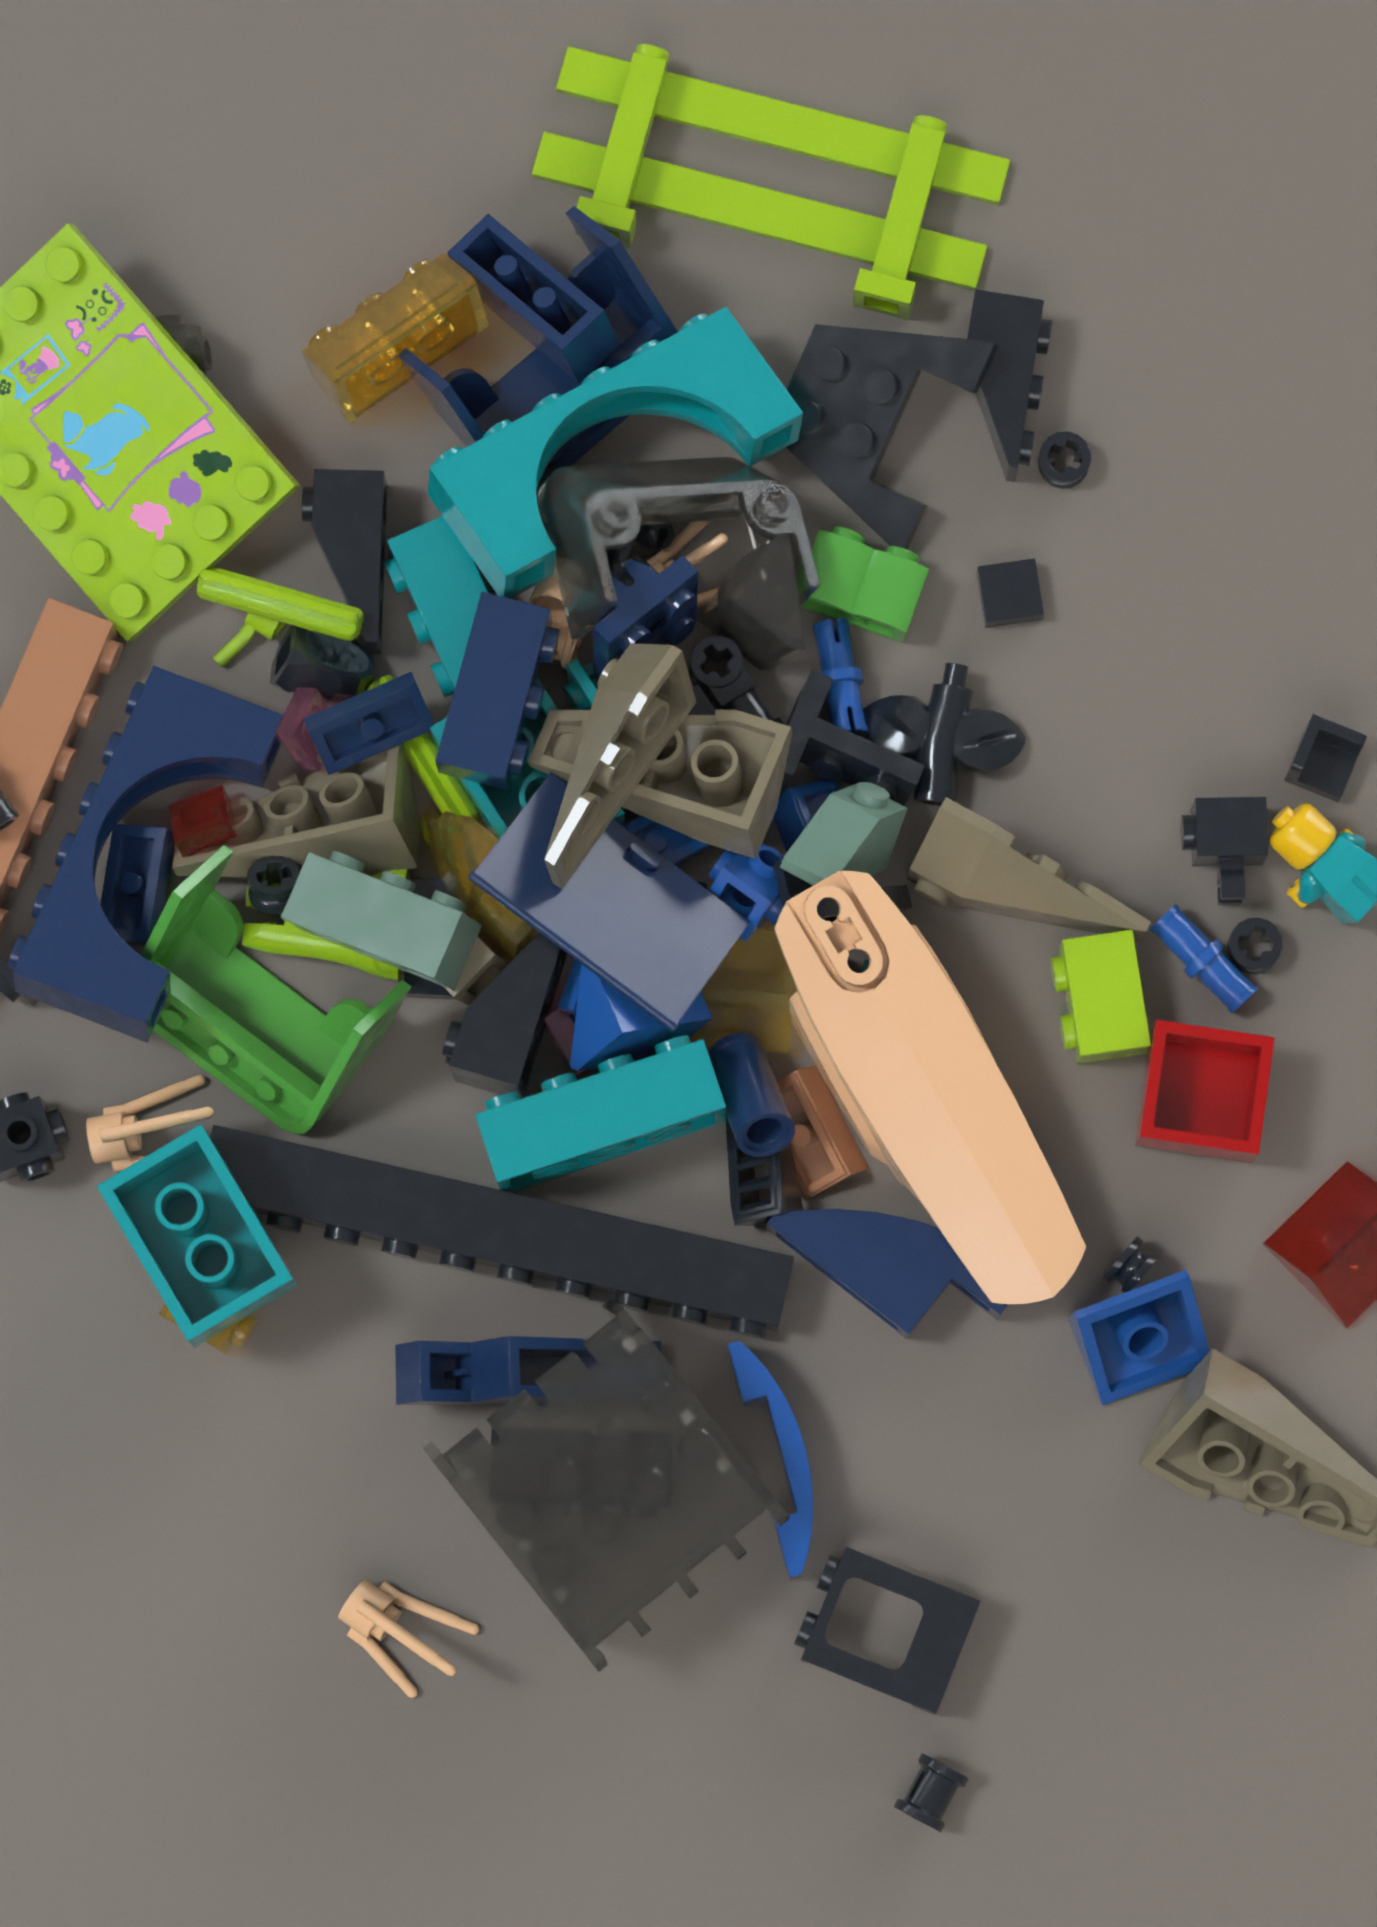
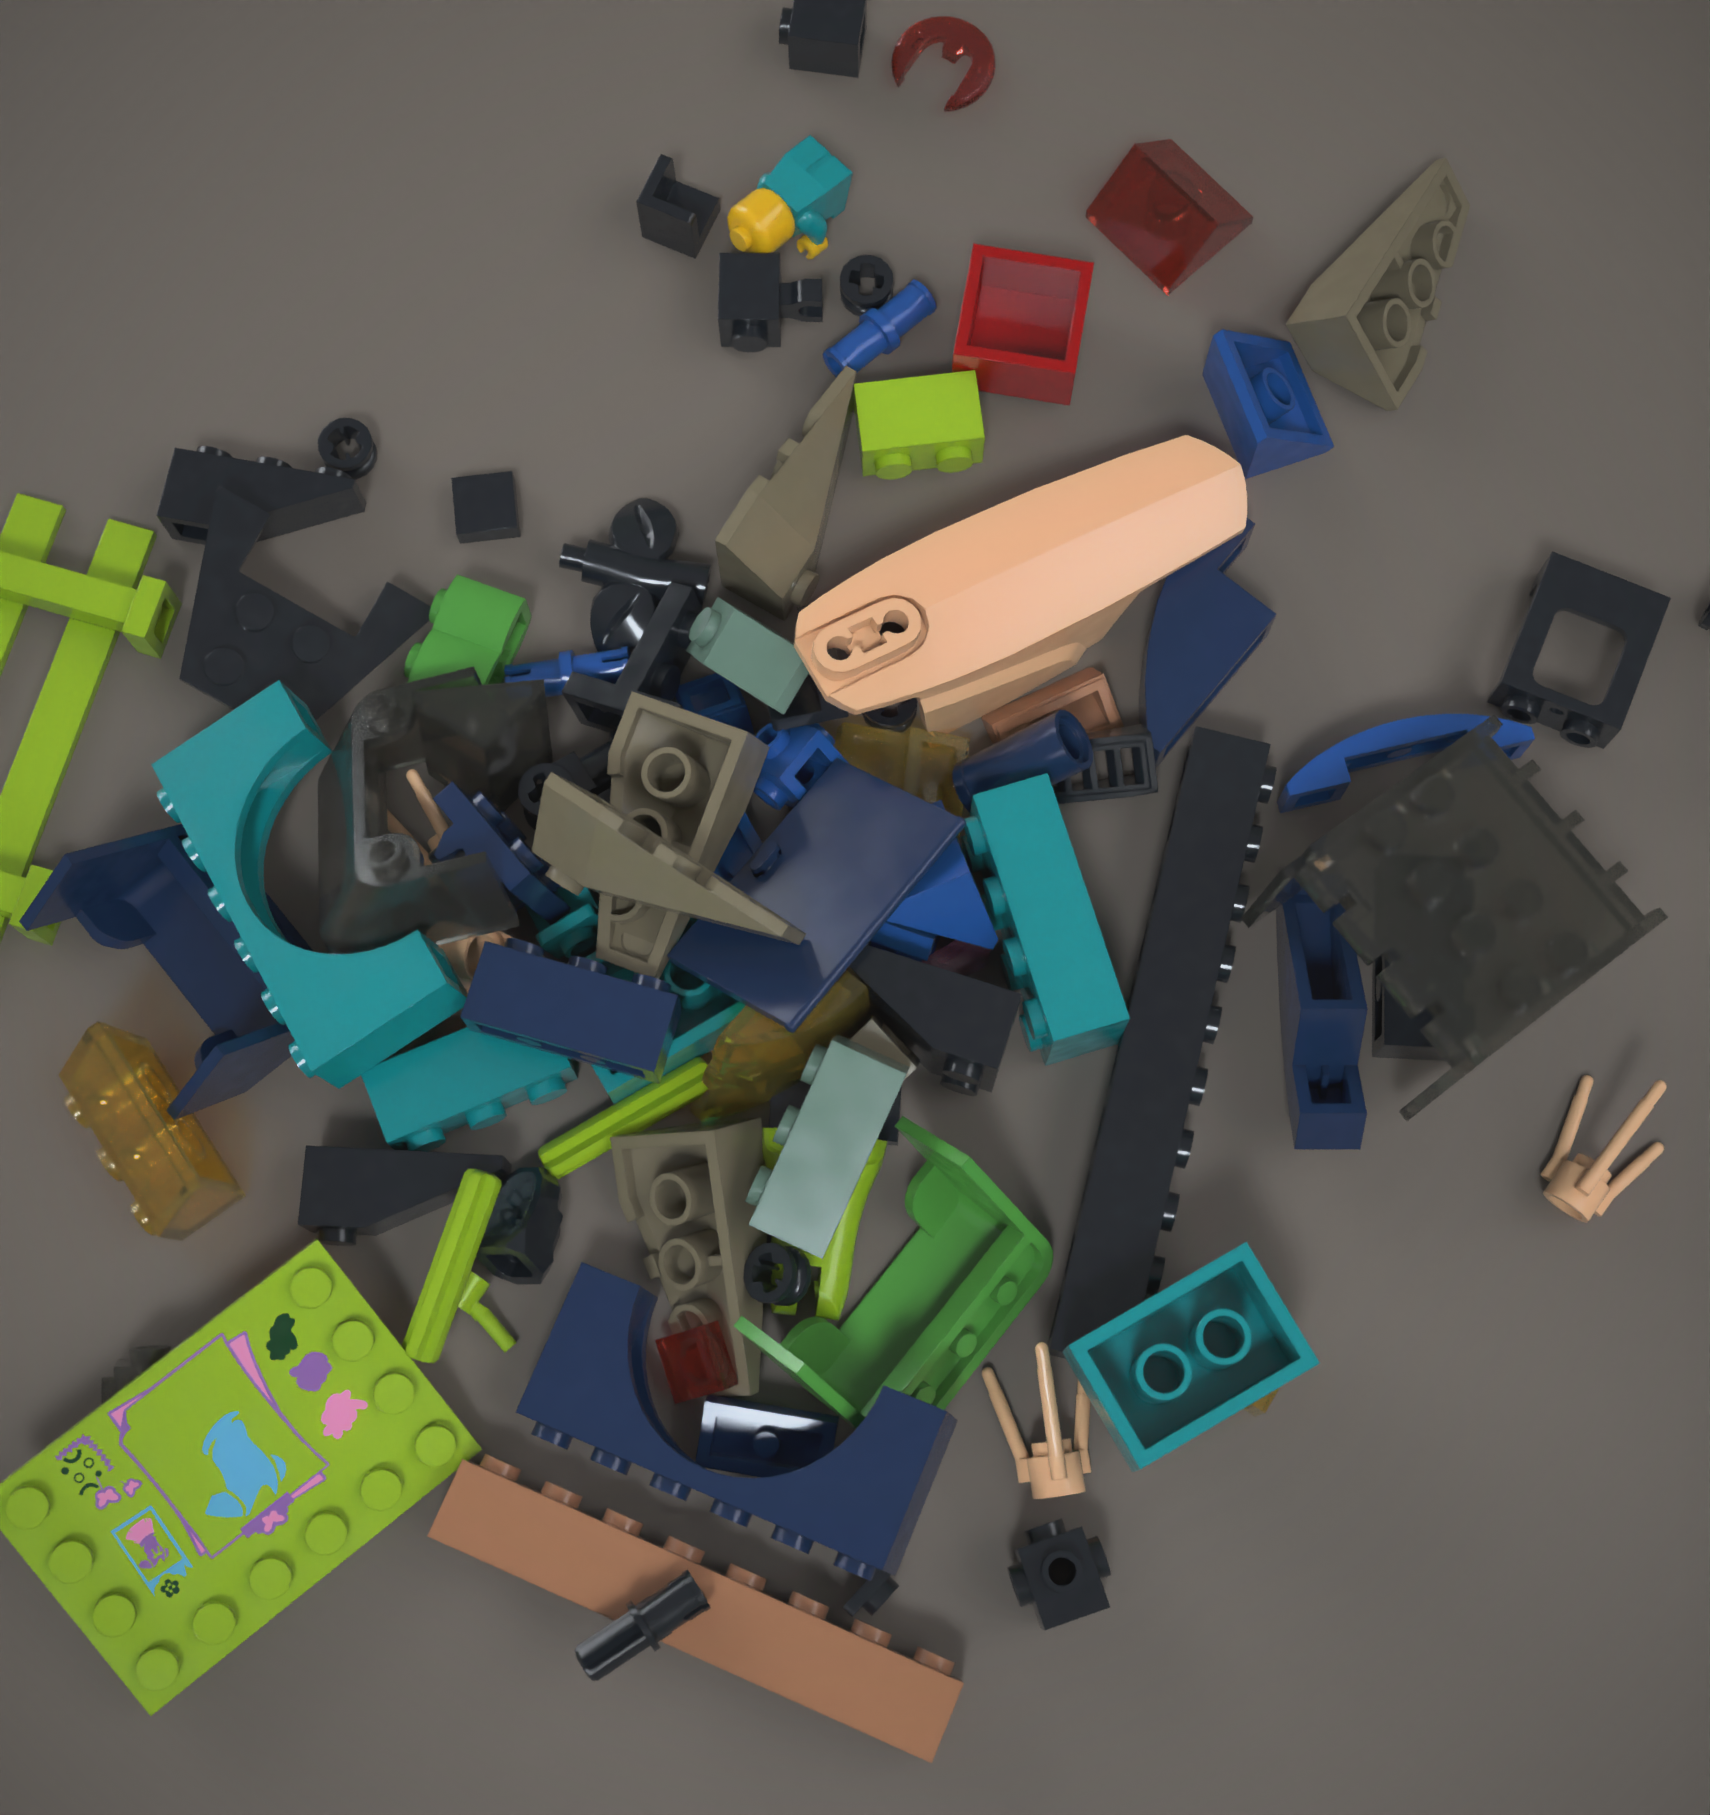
camera: 90 degrees left, 5 degrees down
(293, 731) = (595, 1239): clear pink tile -> none
(369, 723) = (596, 1165): dark blue plate -> none
(535, 299) = (123, 966): dark blue brick -> none
(1131, 1265) = (1196, 407): black bush -> none

